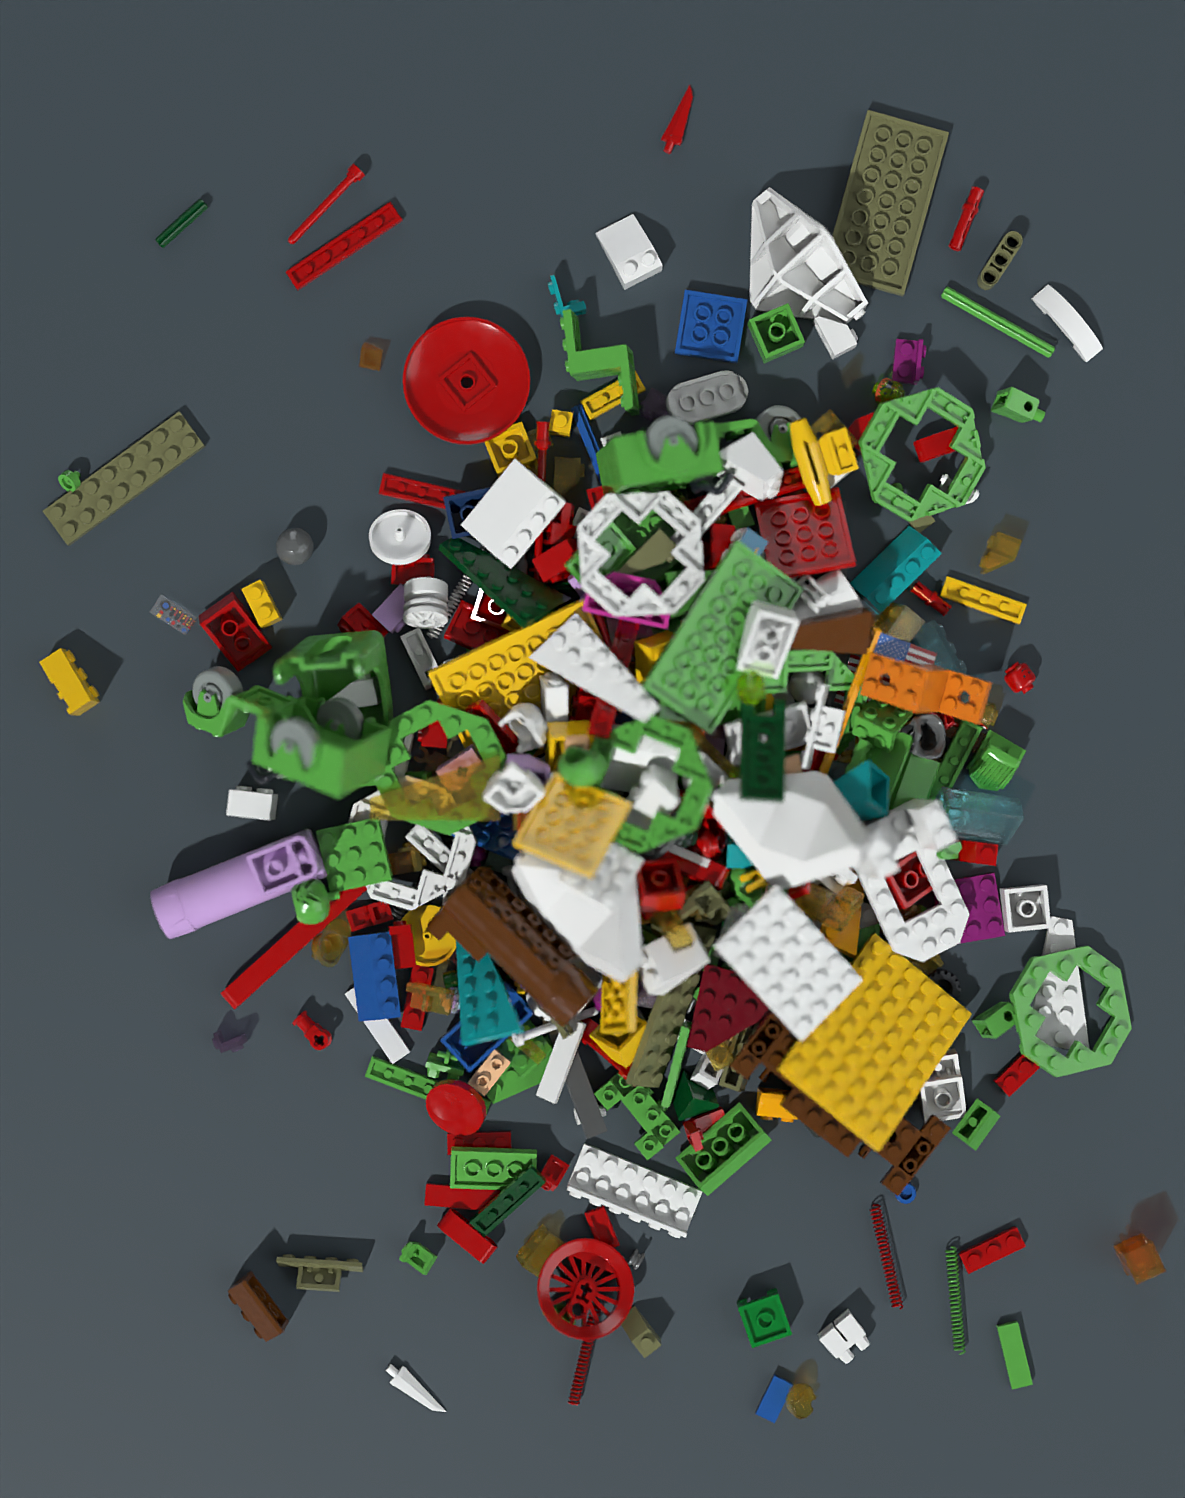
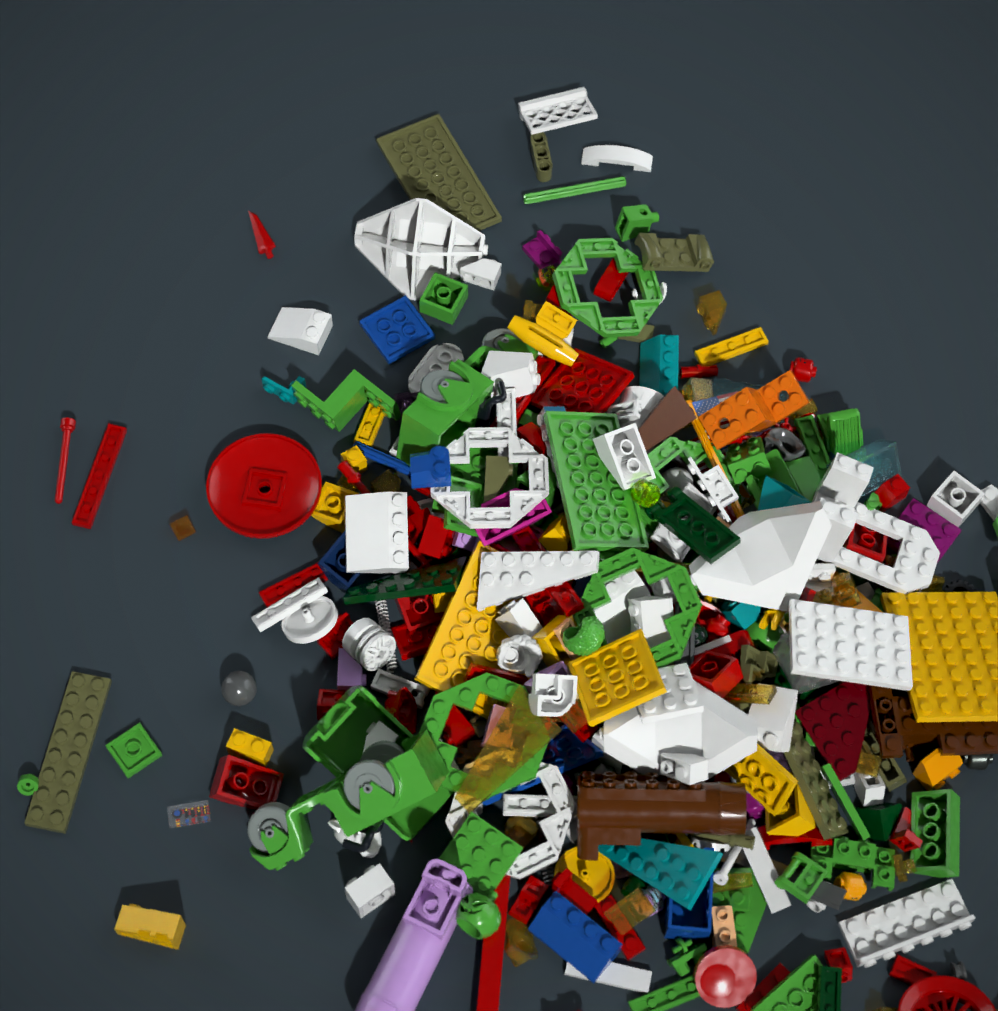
camera: 45 degrees left, 25 degrees down
(174, 523) = (133, 750): none -> bright green tile
(397, 507) = (289, 604): none -> white tile
(405, 680) = (403, 708): none -> red hat
(560, 941) = (684, 767): none -> white slope
(582, 1099) = (806, 882): none -> bright green plate
(596, 504) = (430, 468): none -> blue slope
(618, 1127) = (853, 884): none -> light orange head
(670, 1151) = (903, 867): none -> clear yellow tile
(969, 209) = (494, 145): red pin -> none
(1019, 469) = (675, 254): none -> olive piece
(1062, 215) = (559, 103): none -> white fence

